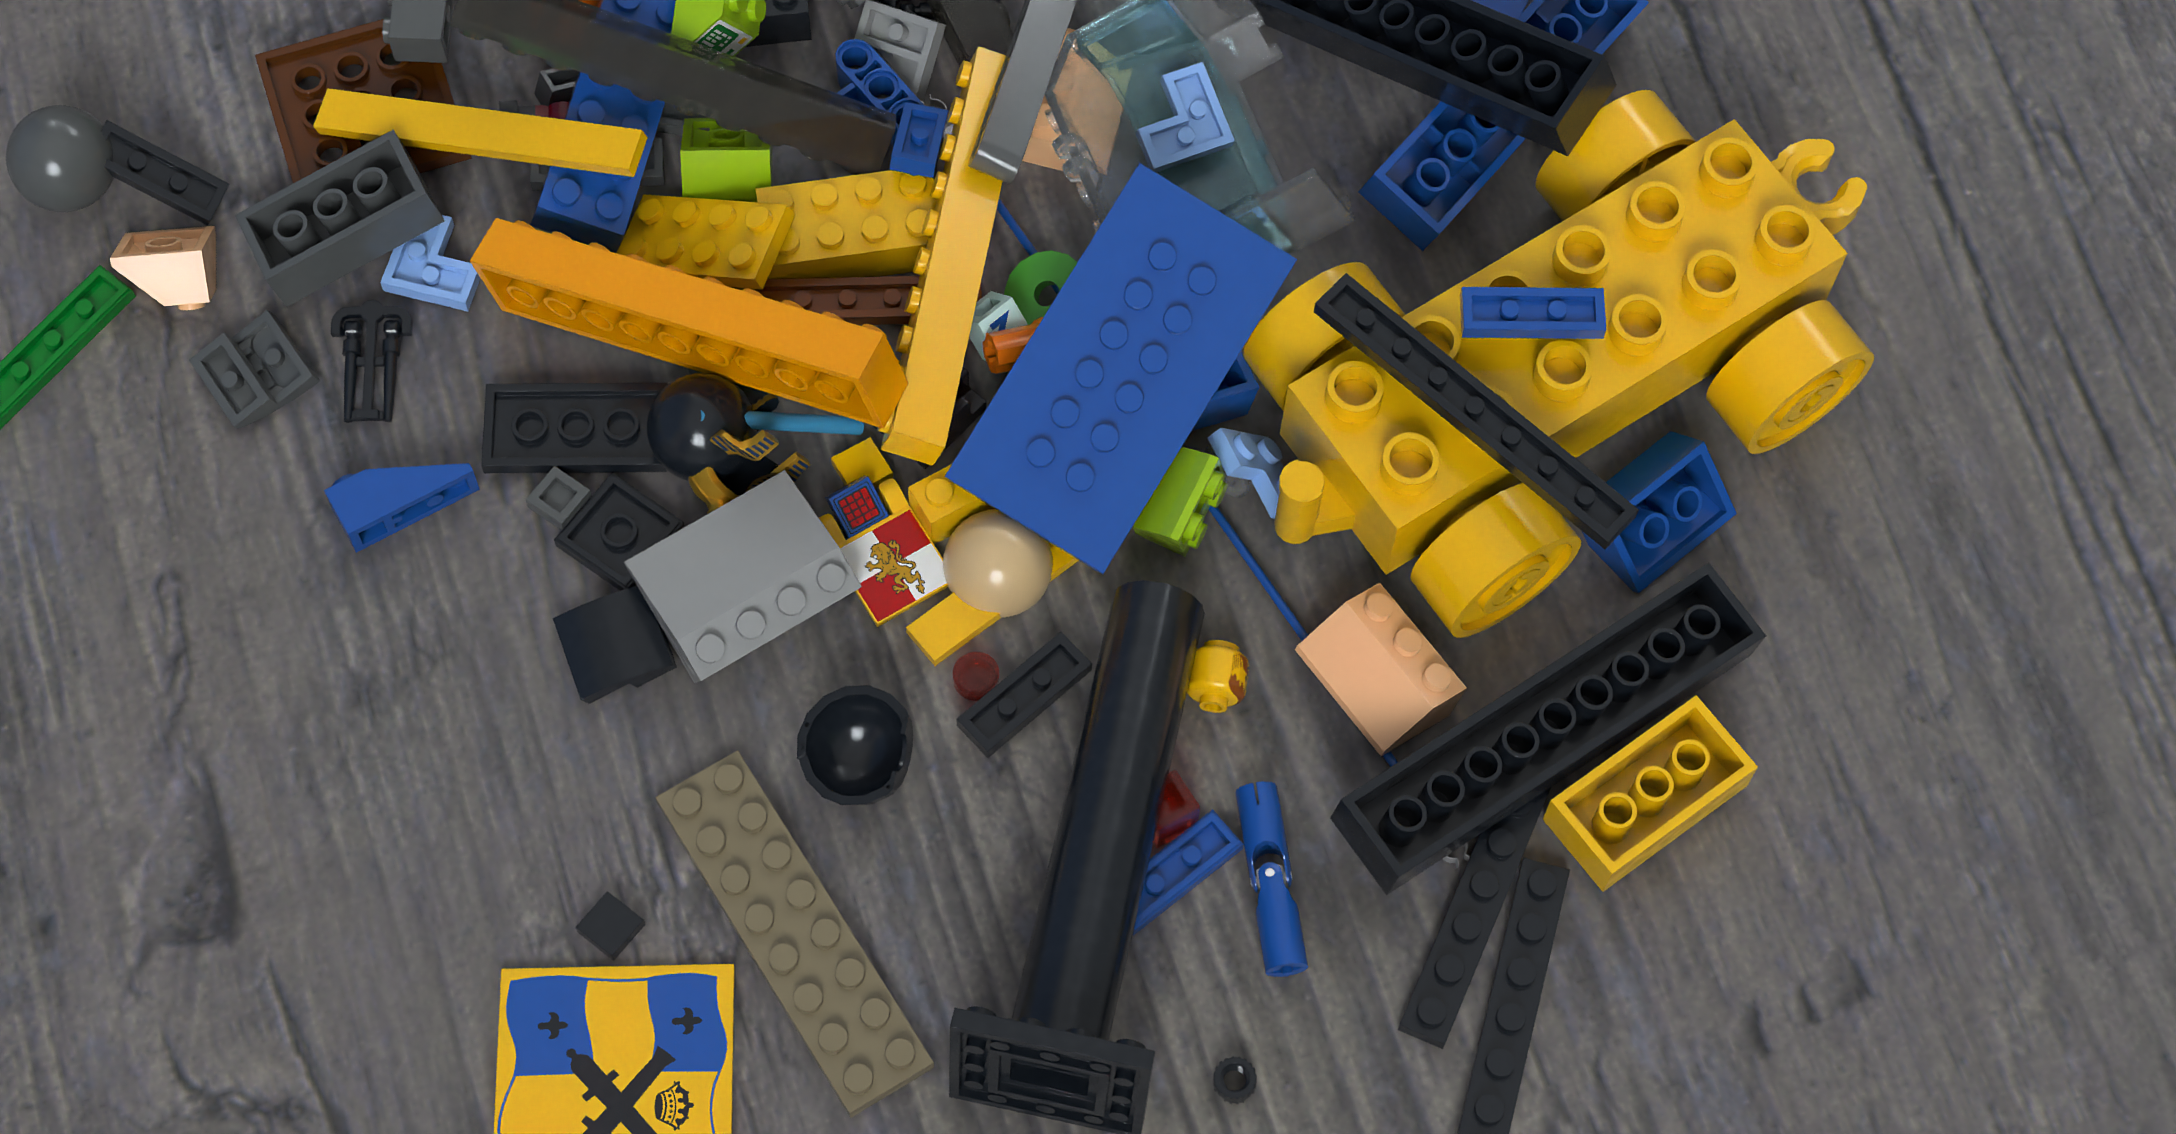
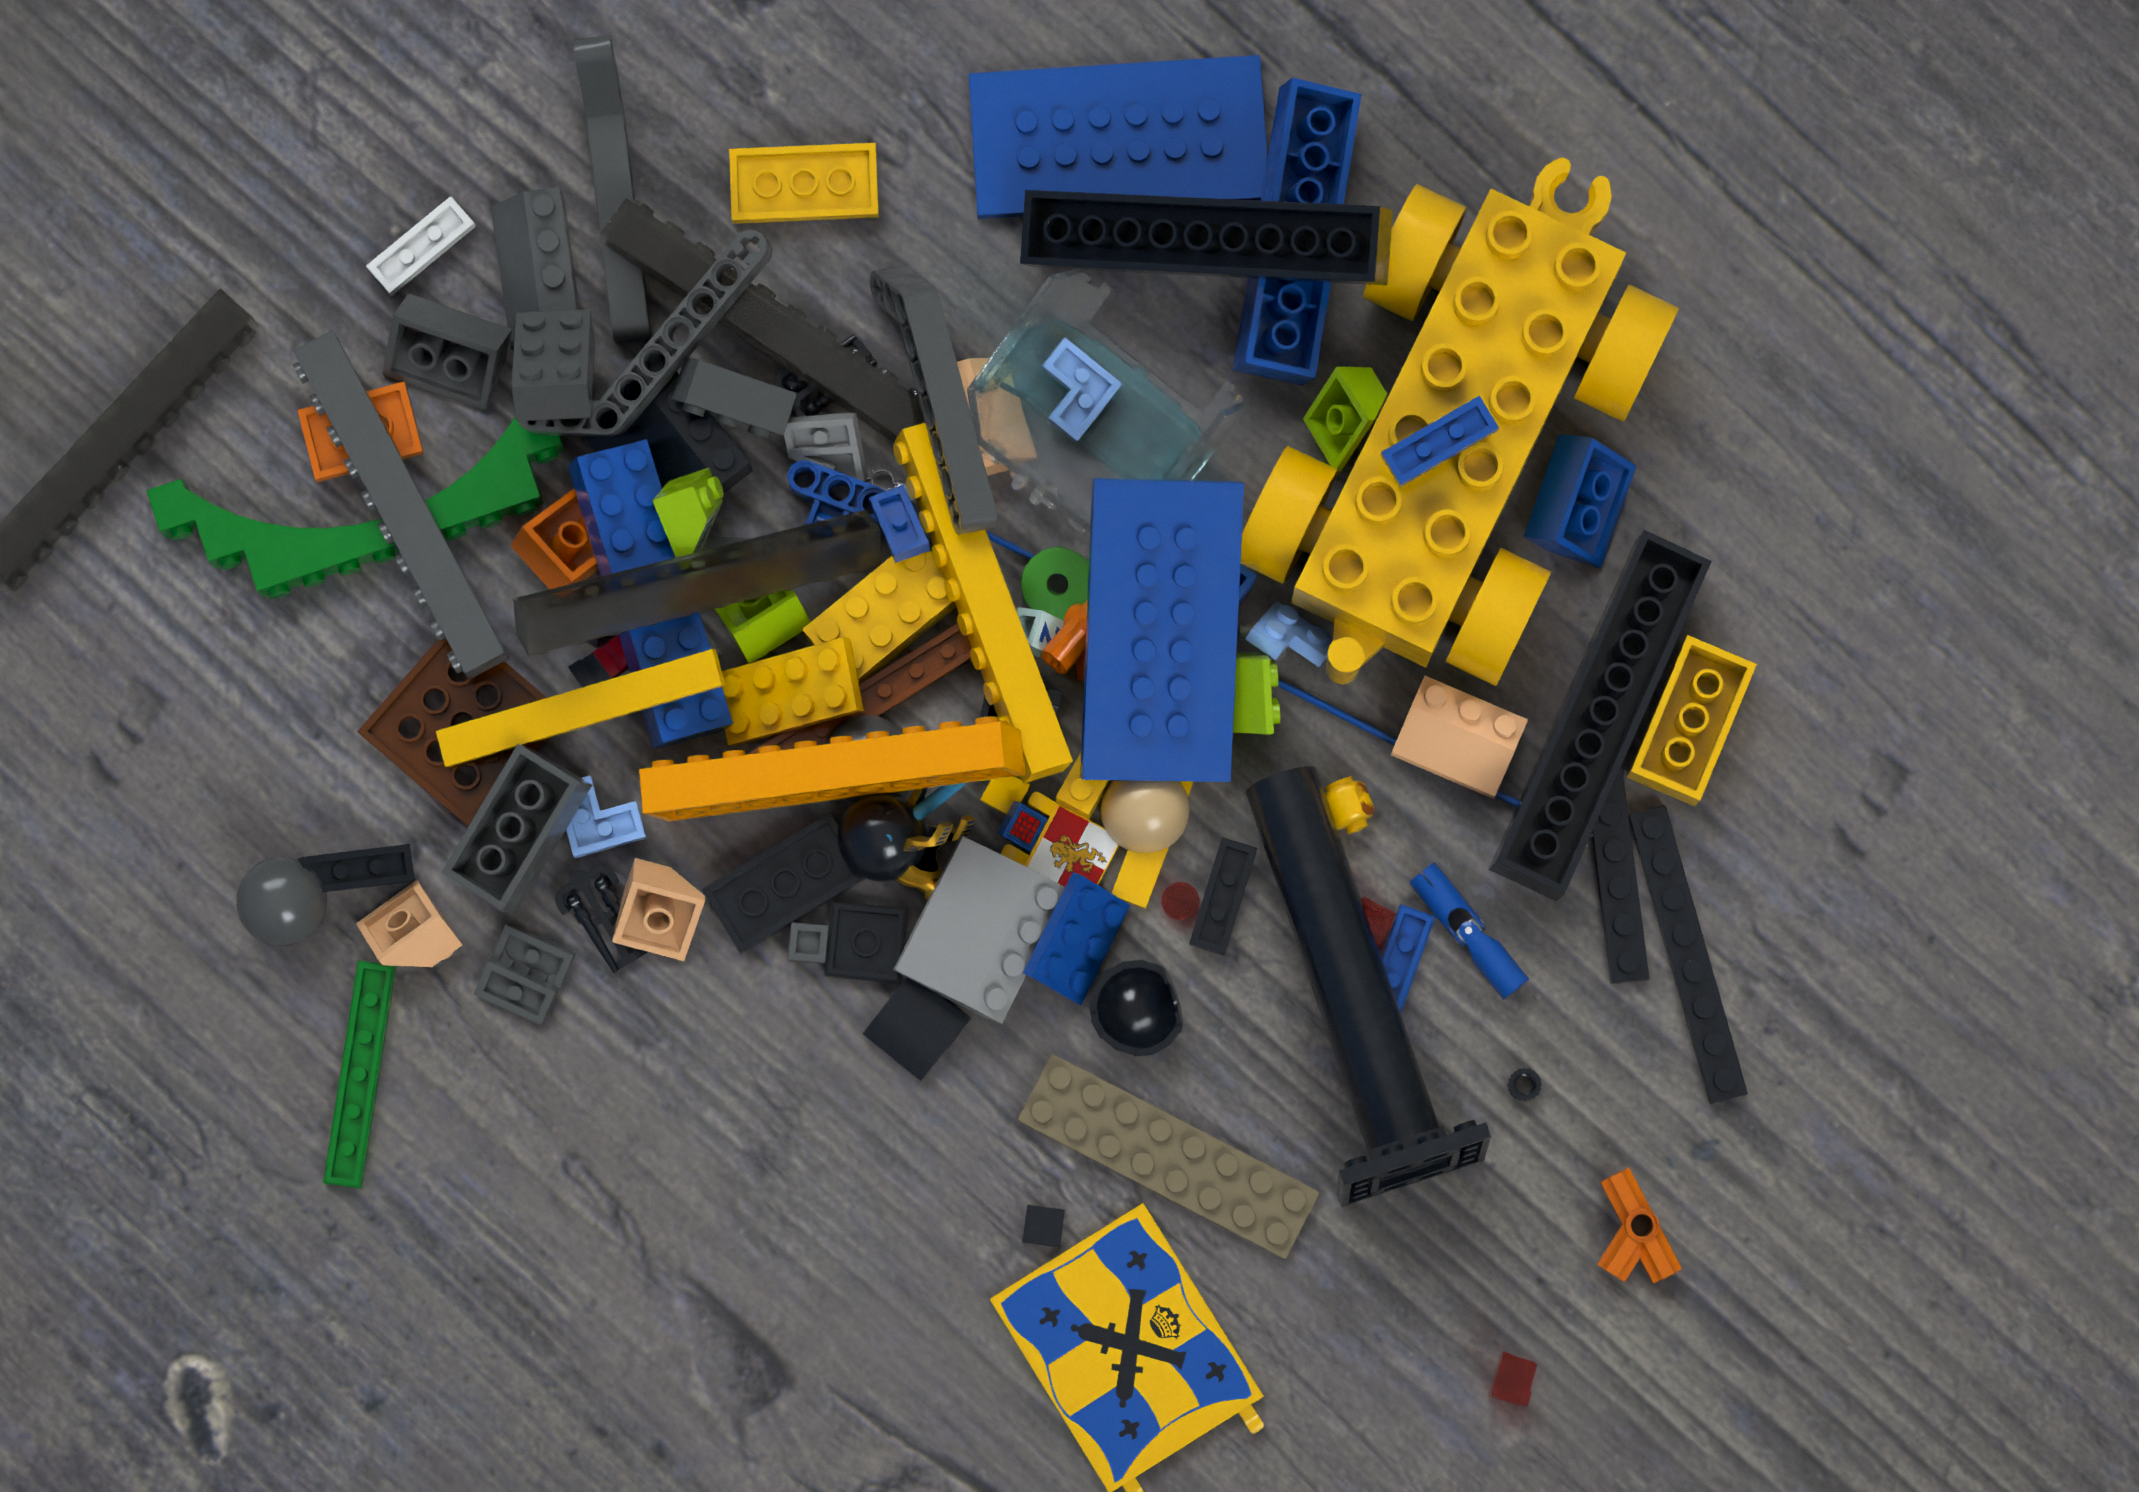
camera: 25 degrees left, 15 degrees up
(390, 499) = (689, 1017): blue slope -> none
(424, 378) = (658, 911): none -> light nougat slope
(838, 642) = (1076, 938): none -> blue plate
(1447, 266) = (1344, 412): none -> lime slope
(1476, 411) = (1440, 540): black plate -> none

